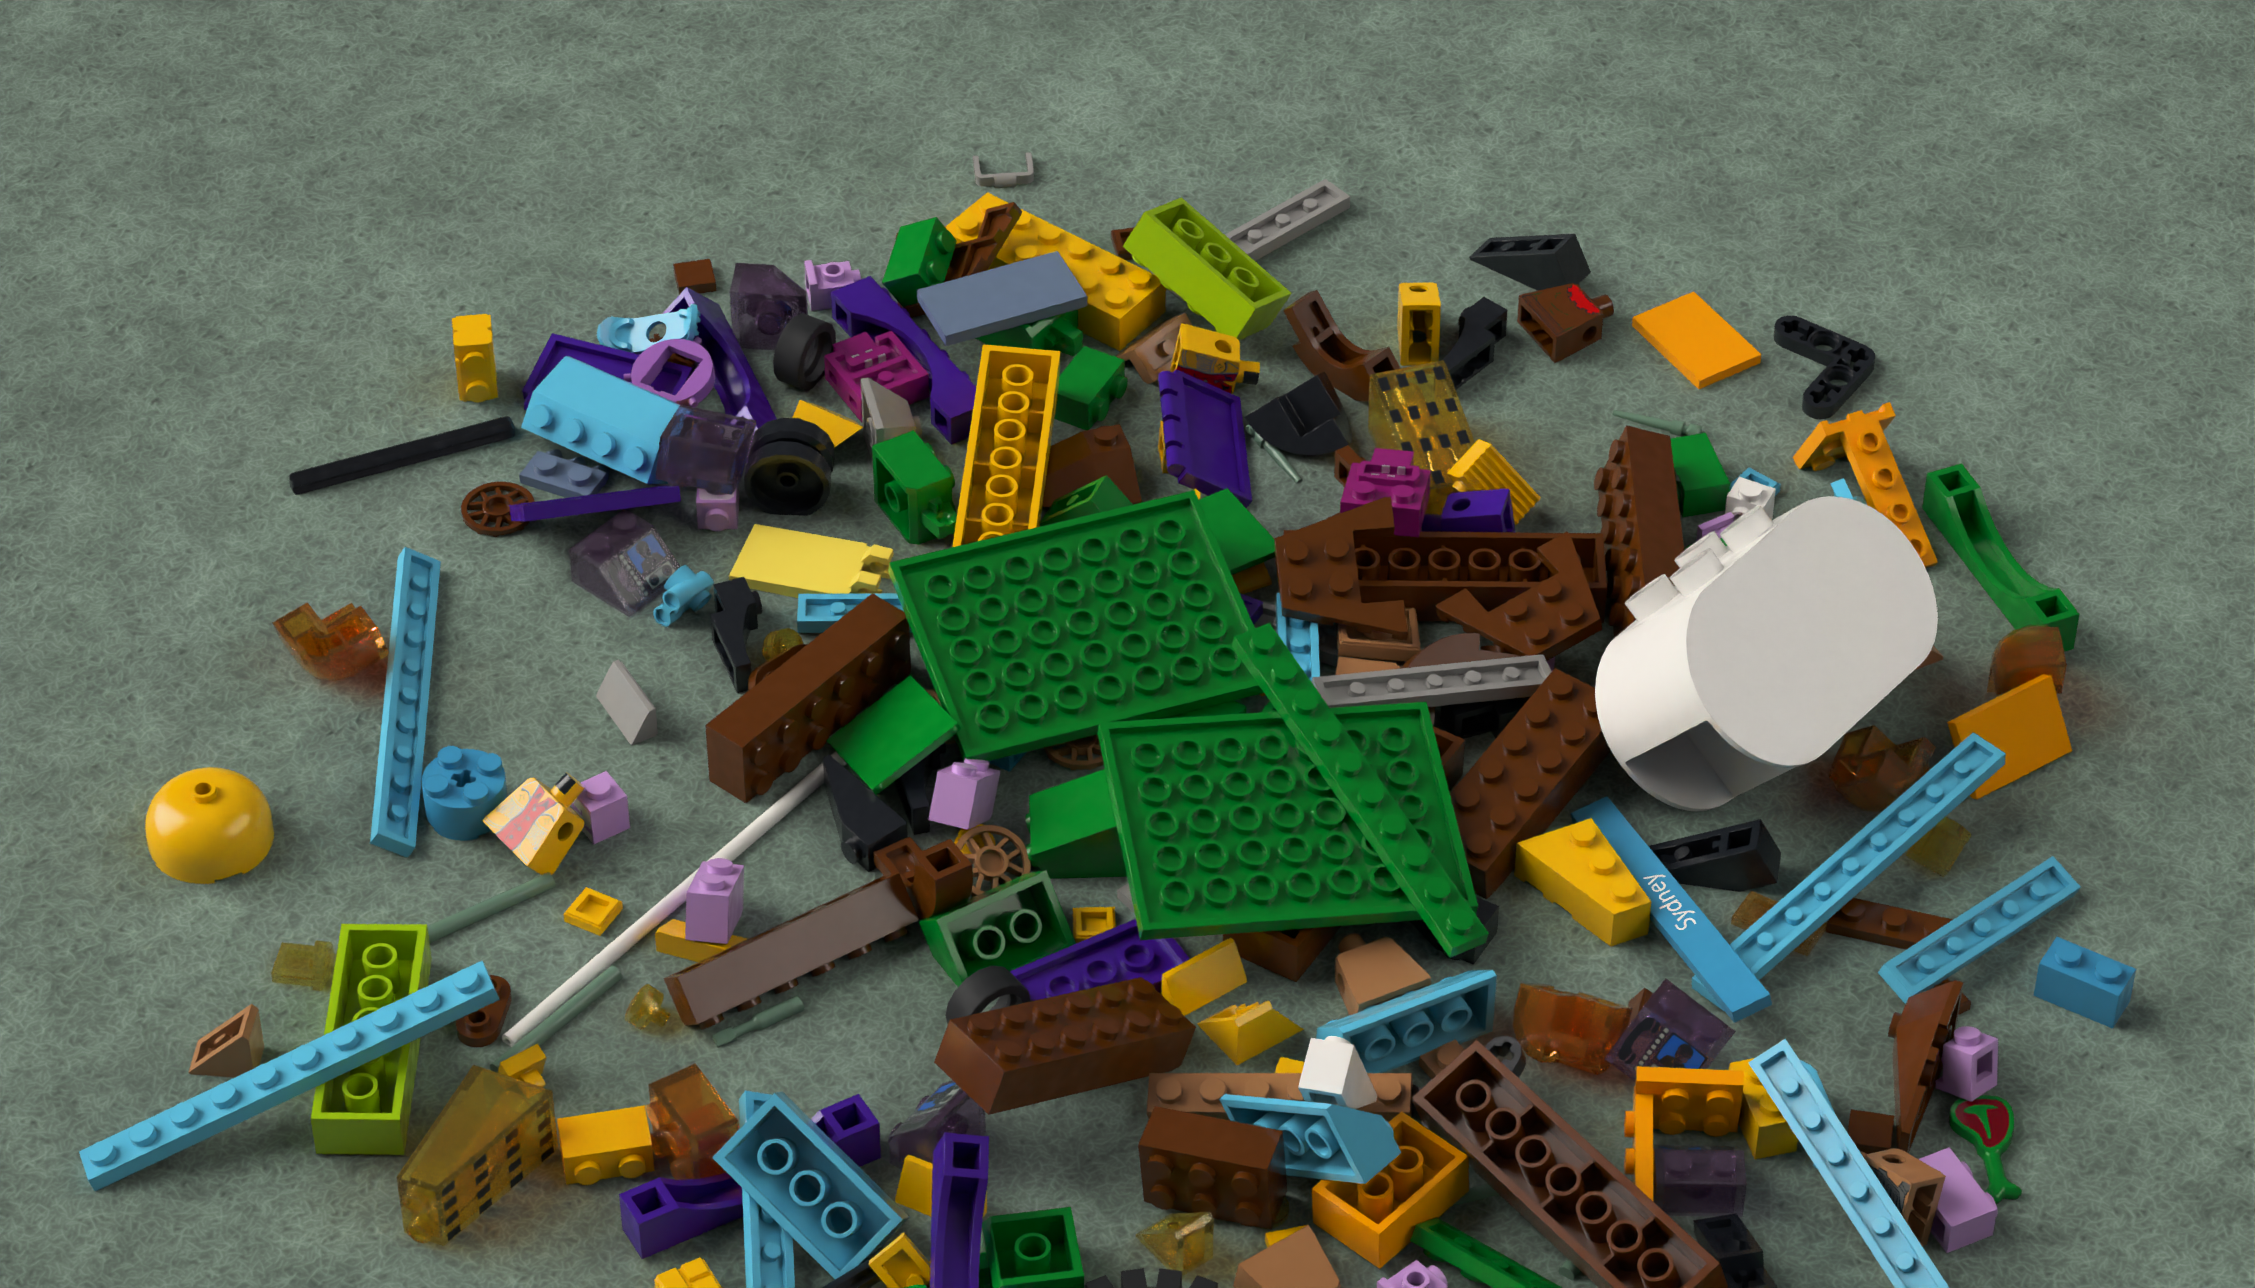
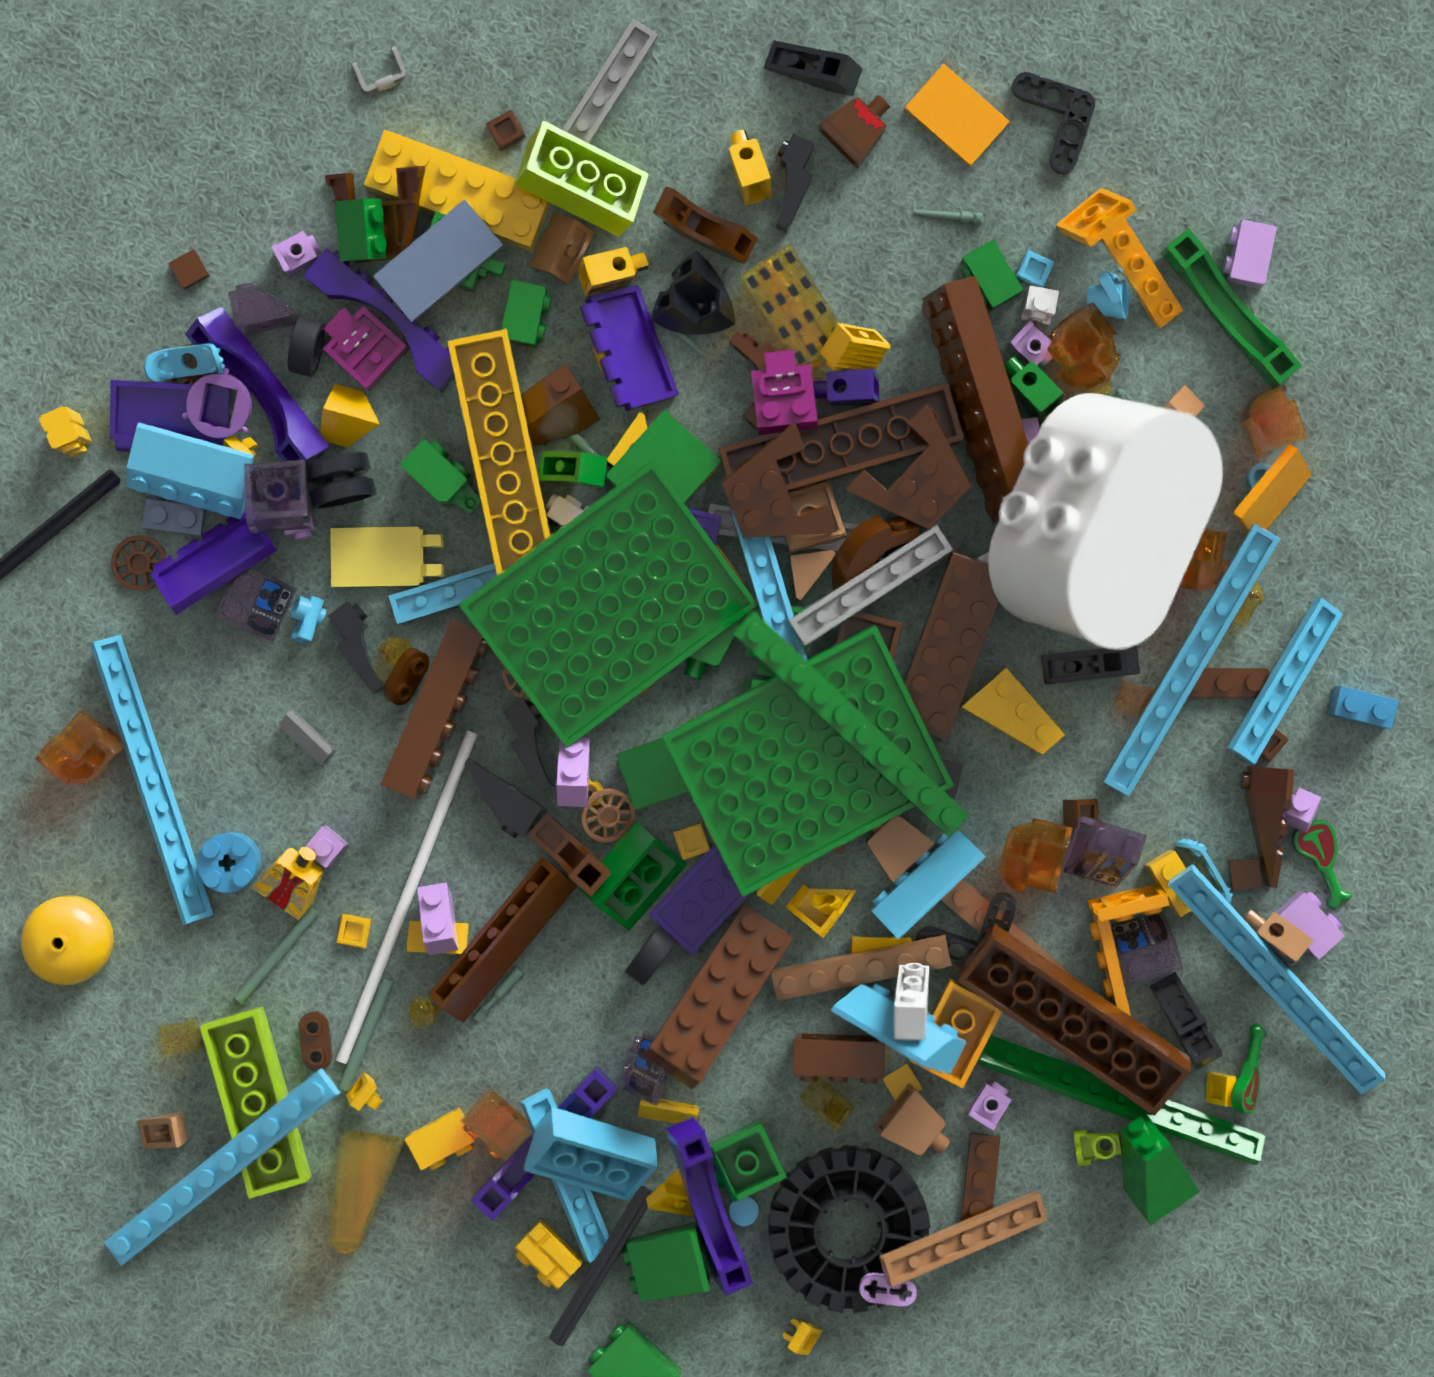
camera: 20 degrees left, 45 degrees up
(884, 414) = (397, 411): light grey slope -> none
(893, 734) = (506, 731): green piece -> none
(1680, 918) = (1075, 724): dark azure tile -> none
(2039, 523) = (1249, 254): none -> lavender brick

